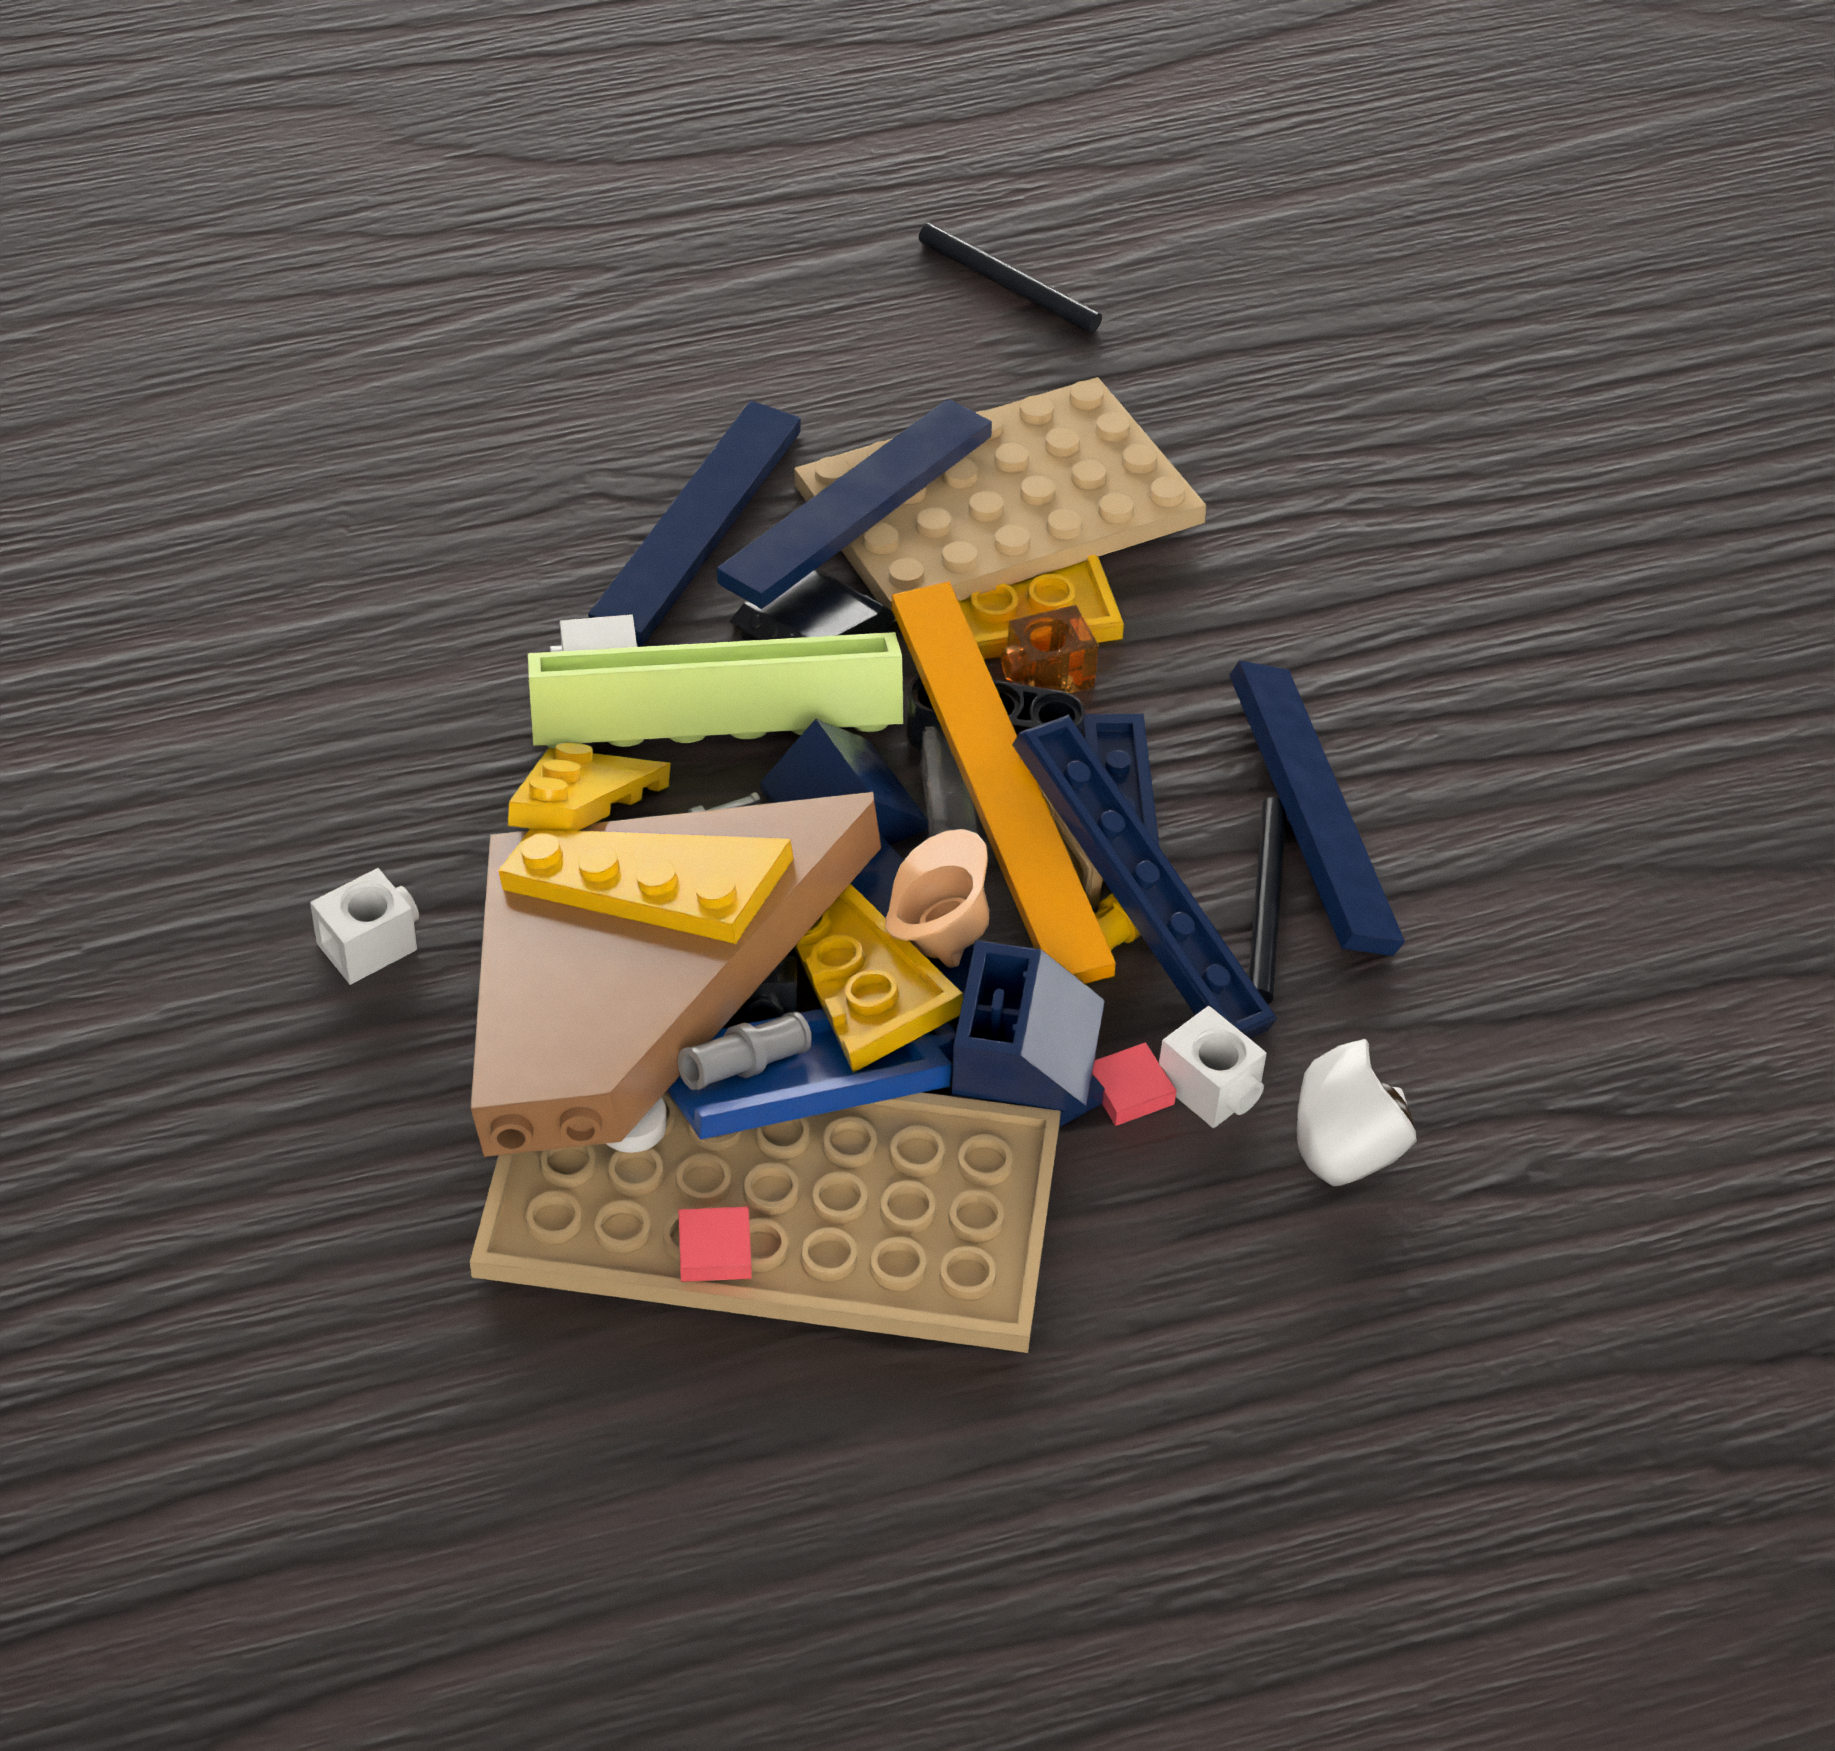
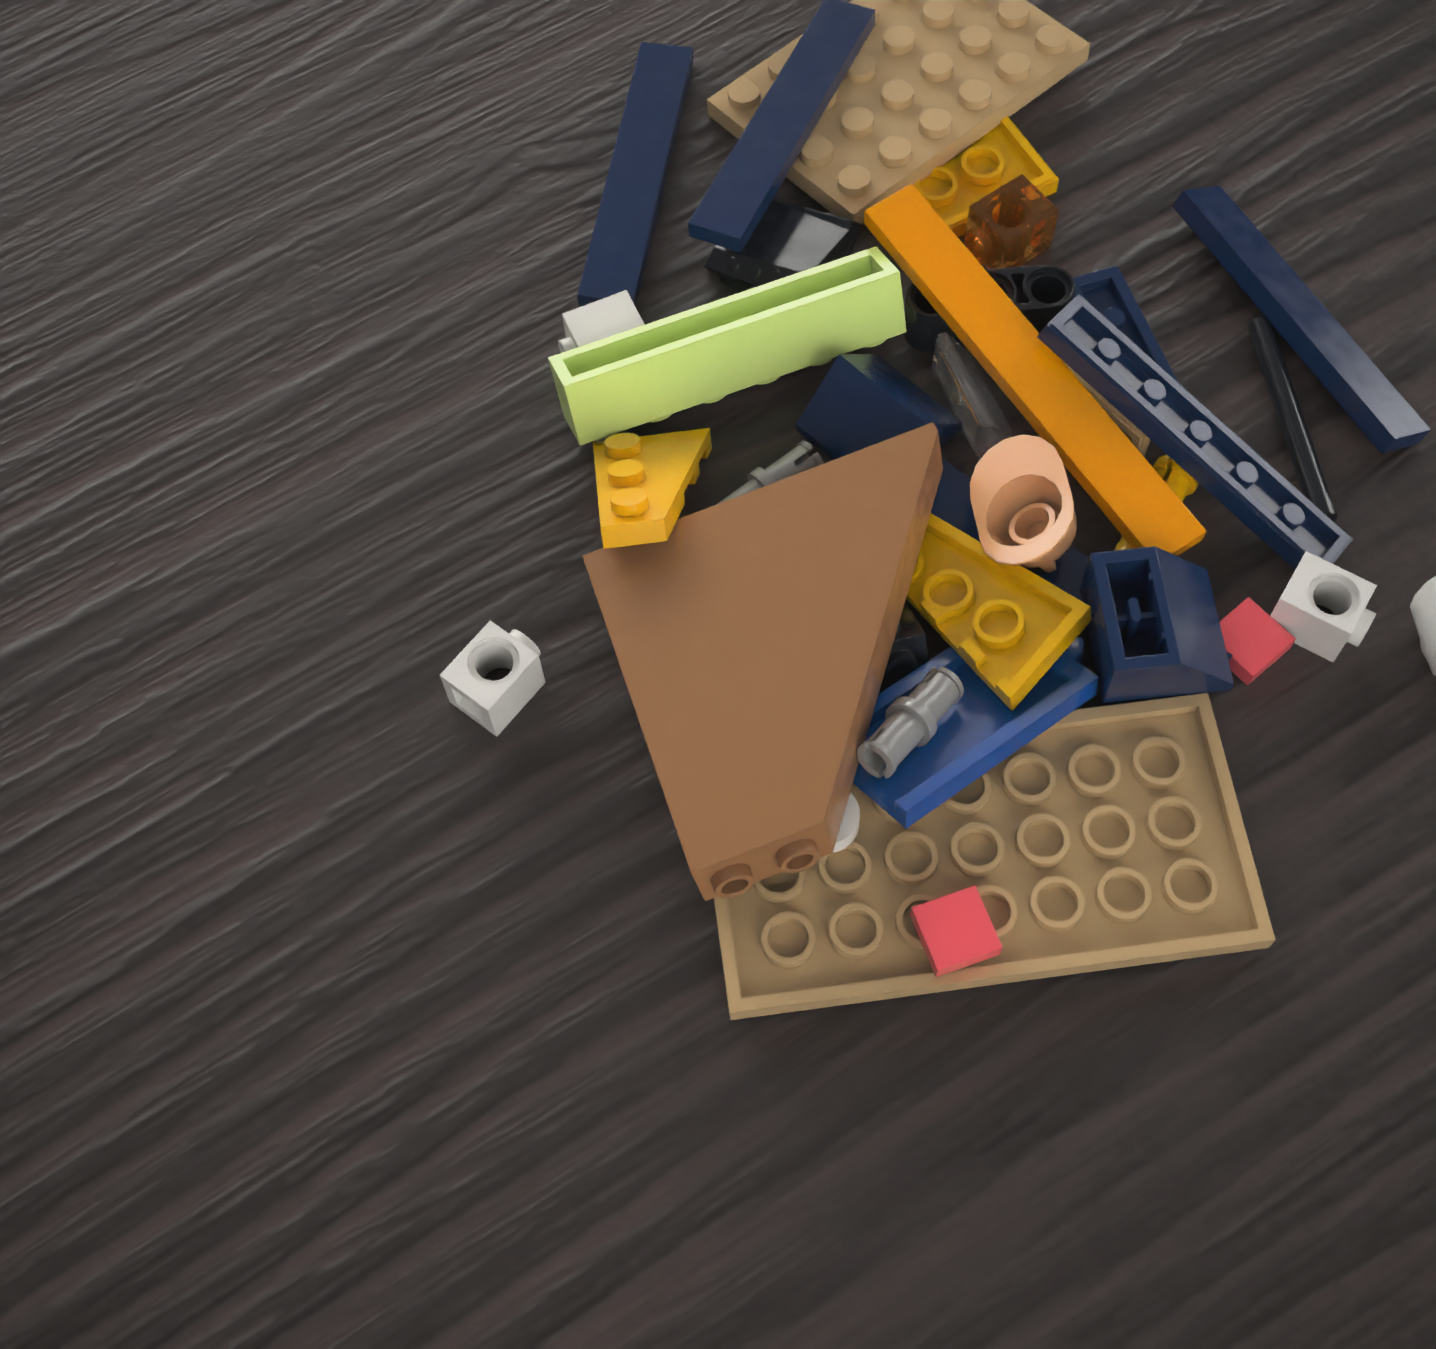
camera: 10 degrees left, 15 degrees up
(658, 879) = (779, 568): yellow wing -> none

